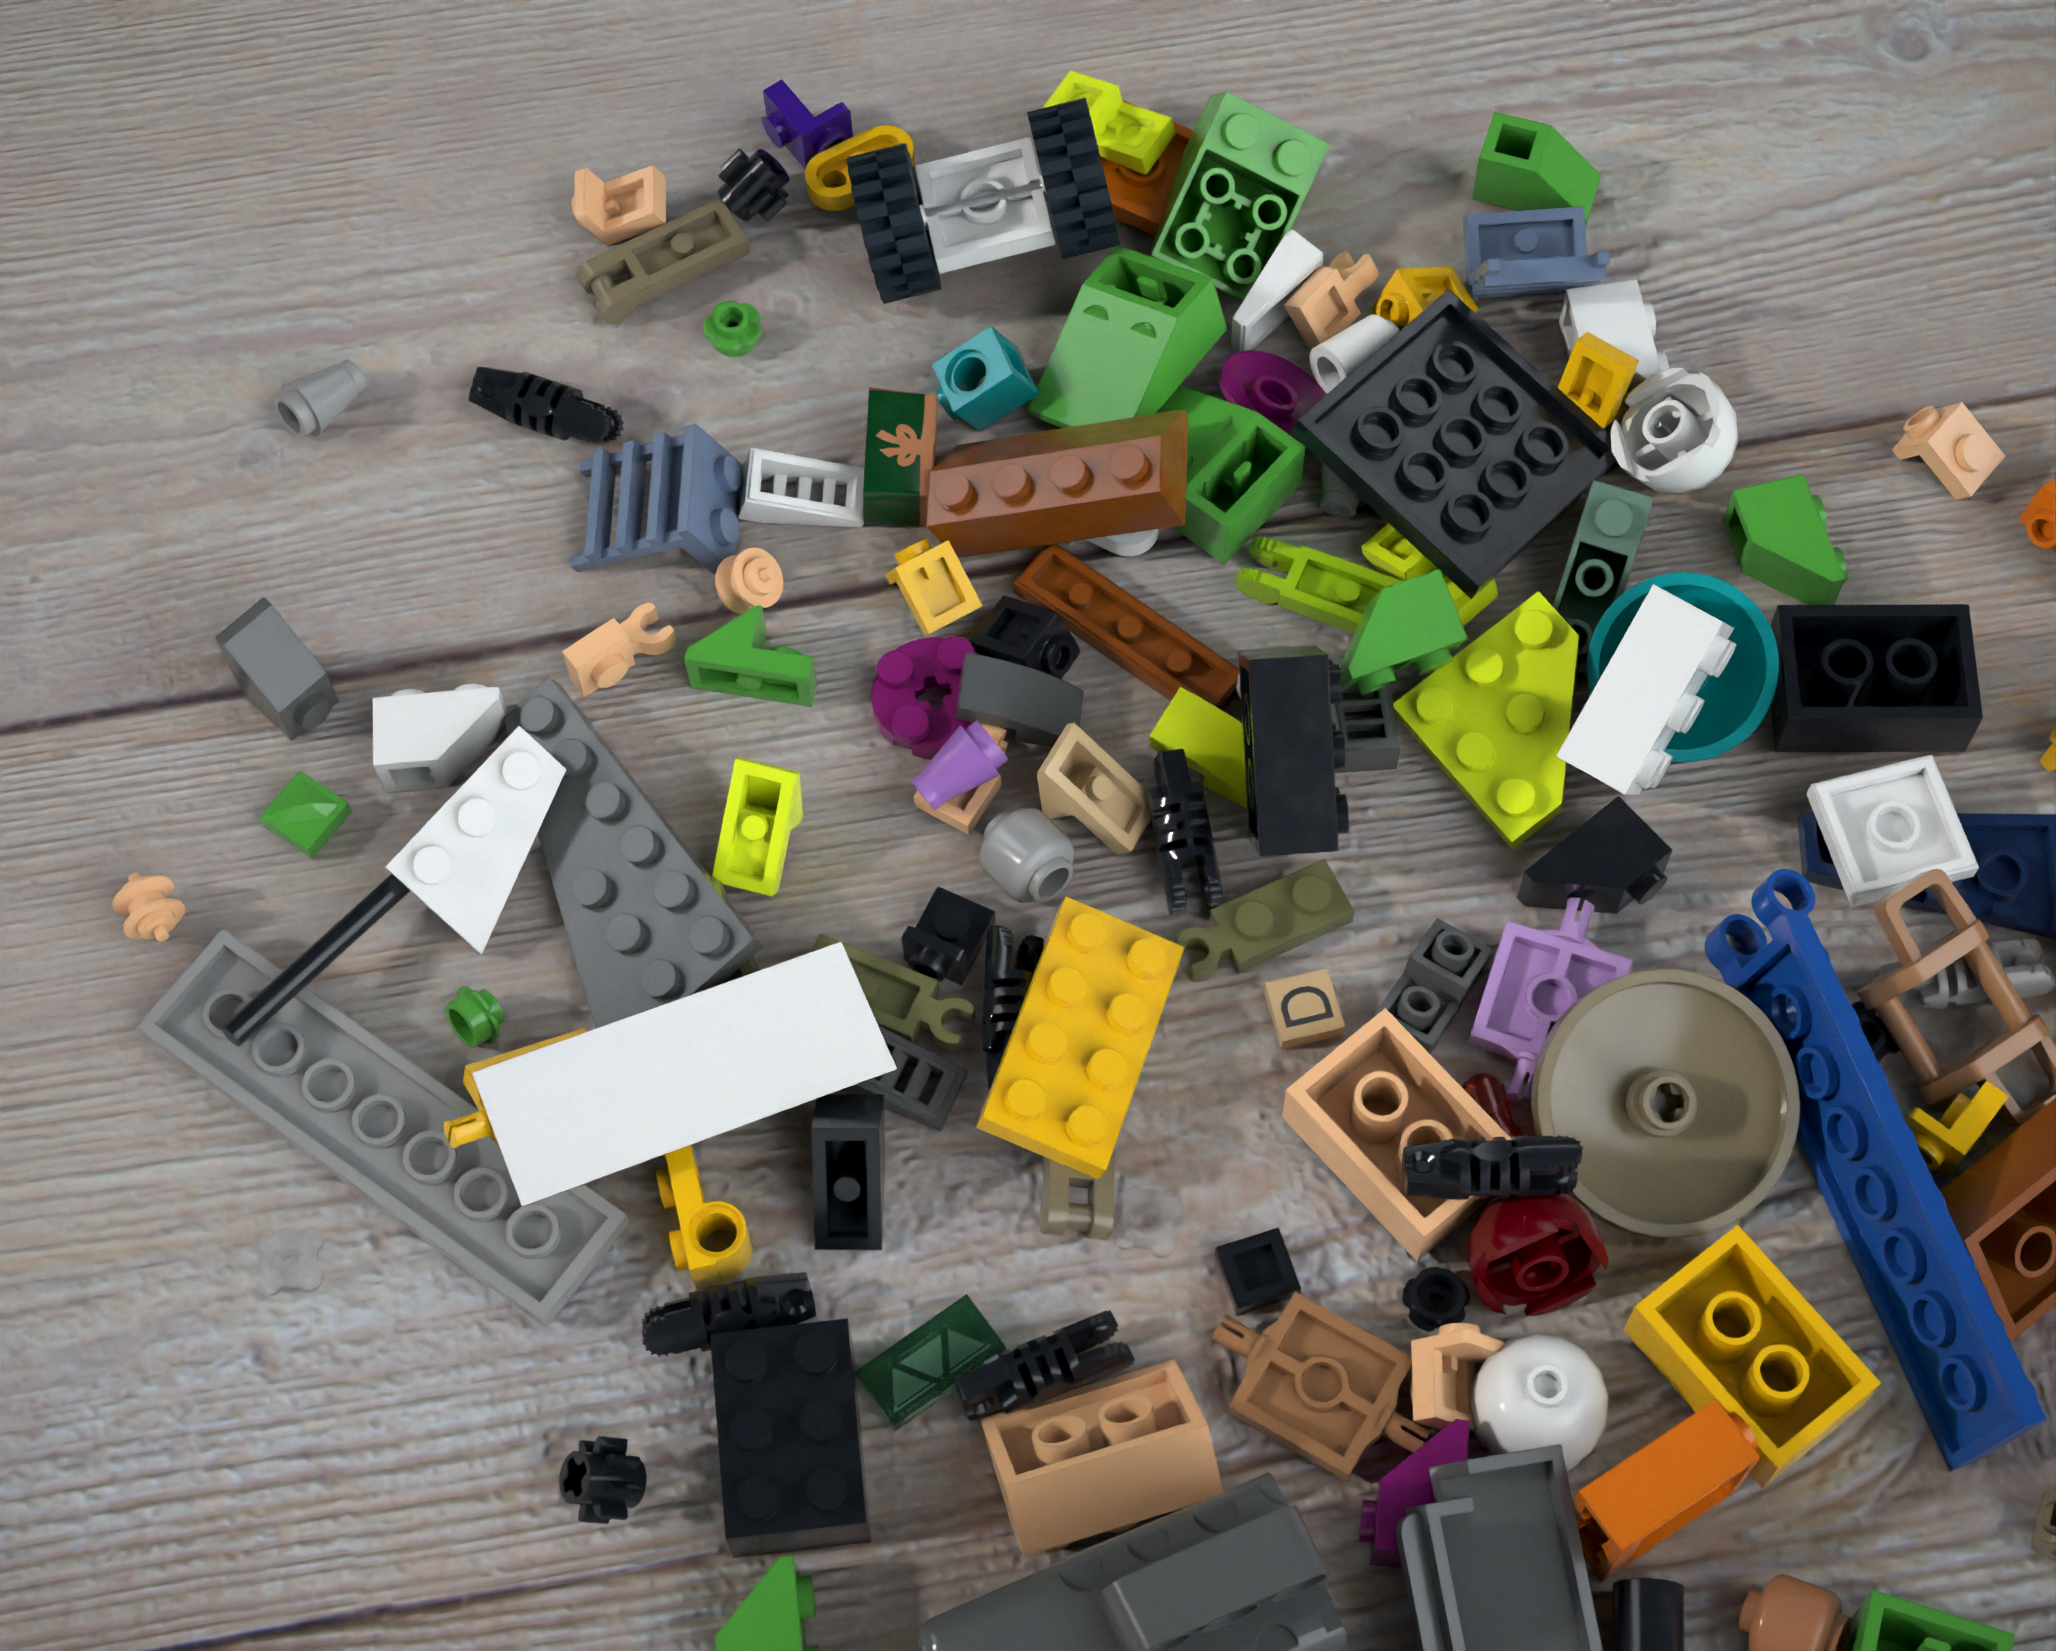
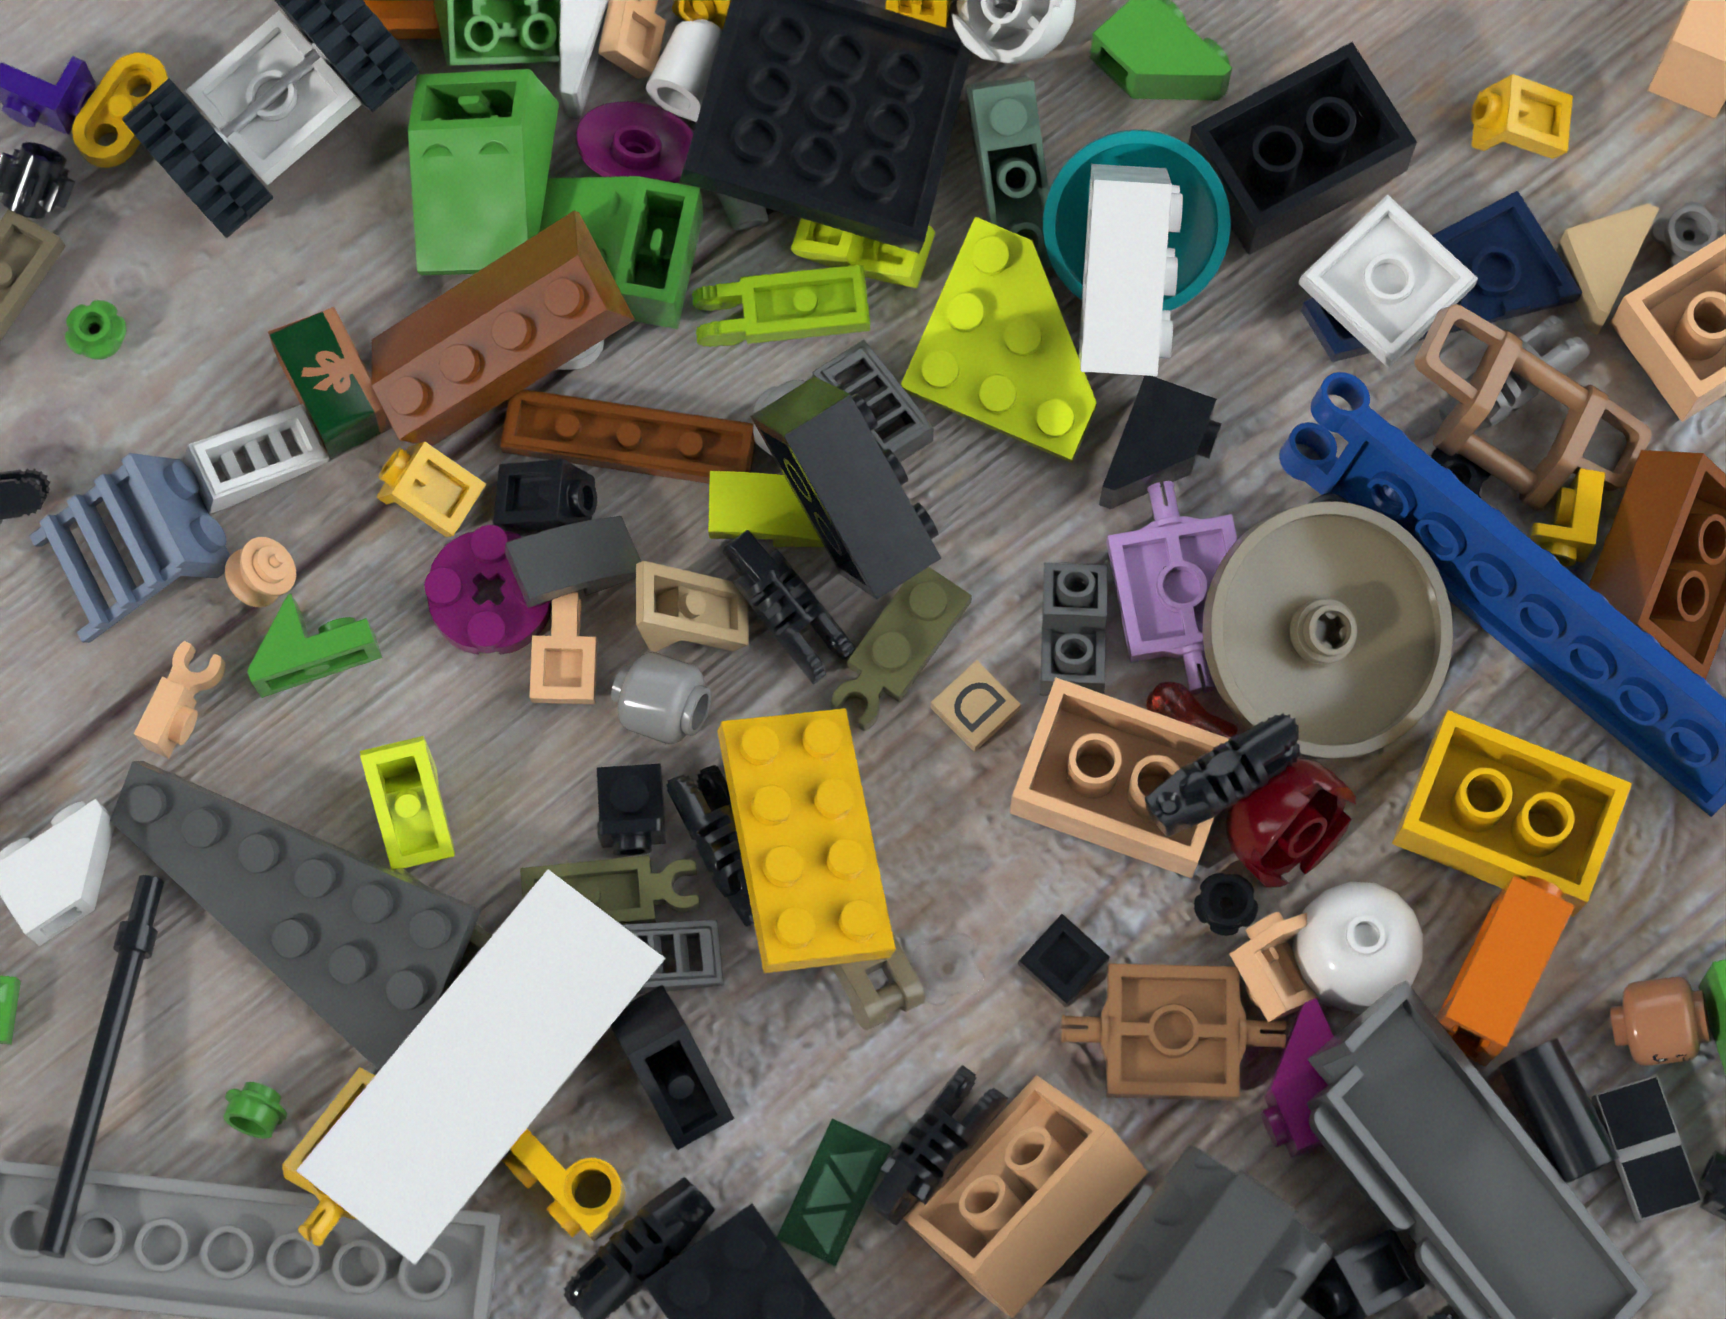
camera: 30 degrees left, 10 degrees up
(479, 839) = (165, 947): white wing -> none
(960, 765) = (559, 650): medium lavender cone -> none
(1005, 382) = (388, 262): teal brick -> none
(1403, 629) = (875, 317): bright green slope -> none

